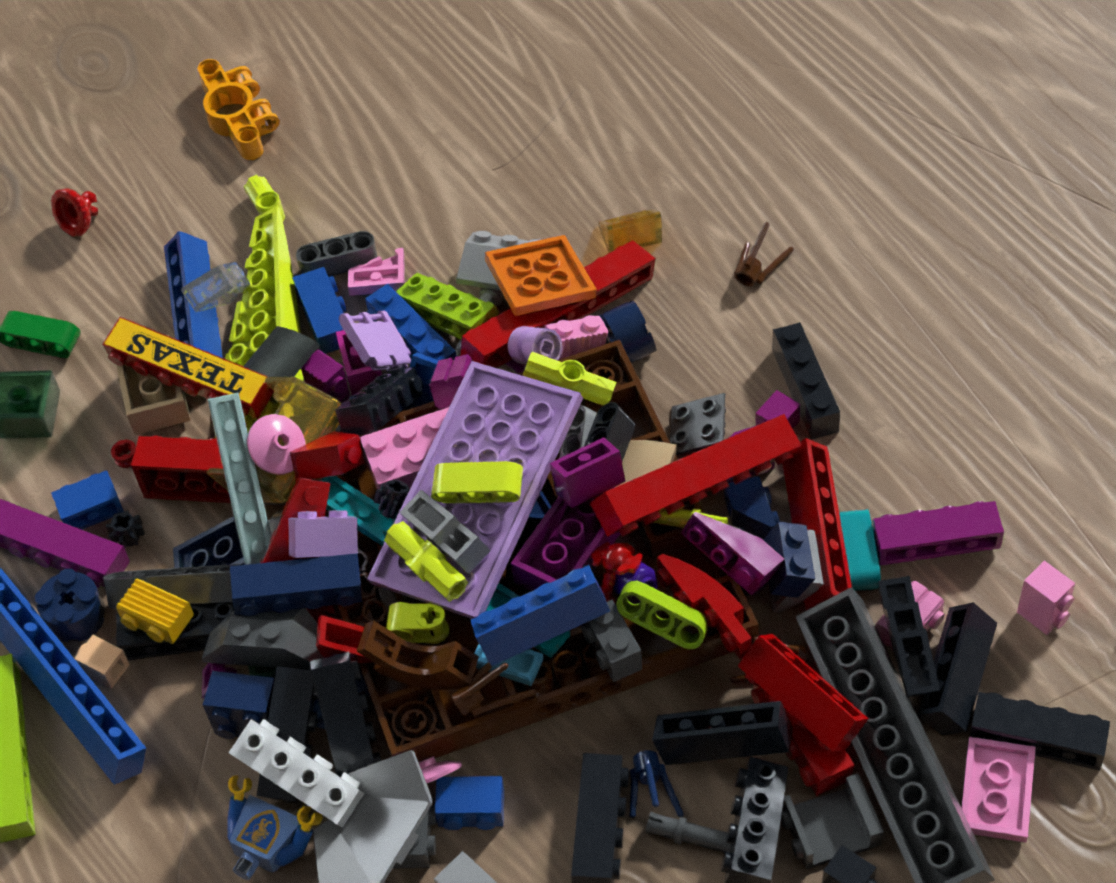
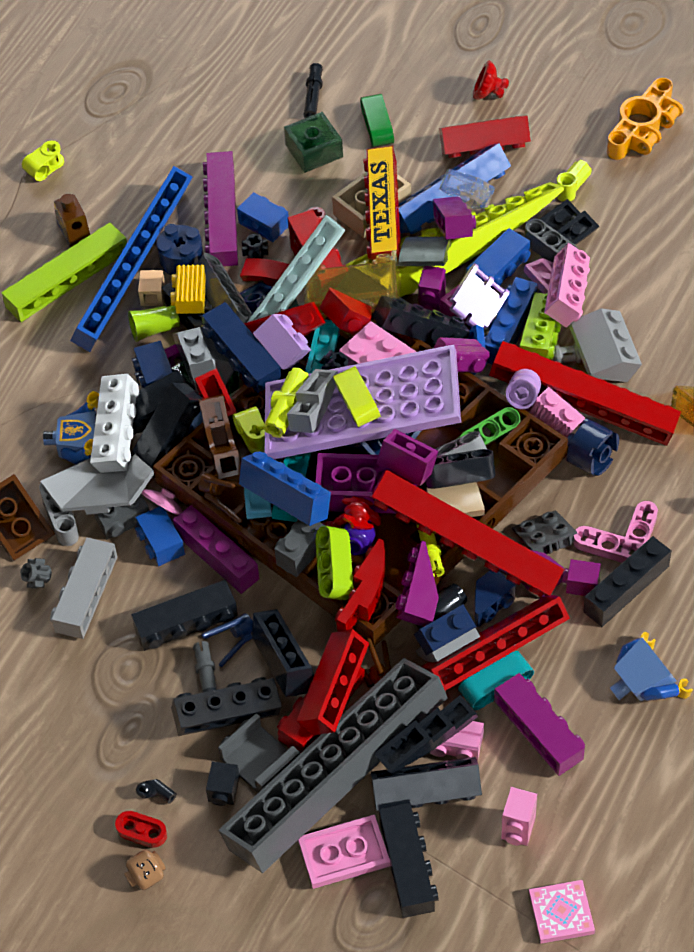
camera: 60 degrees right, 0 degrees up
(145, 245) = (478, 135): none -> red brick
(153, 682) = (152, 321): none -> lime plant
(164, 534) = (263, 269): none -> red slope
(251, 313) = (453, 217): none -> magenta brick
(264, 446) = (331, 263): bright pink dish -> none
(309, 228) = (570, 222): none -> black slope
(414, 255) = (567, 285): none -> bright pink brick
(530, 747) = (216, 549): none -> magenta brick
(540, 275) = (592, 363): orange plate -> none
(571, 376) = (499, 407): neon yellow piece -> none
(751, 361) = (629, 542): none -> bright pink beam
(923, 414) = (645, 673): none -> medium blue torso

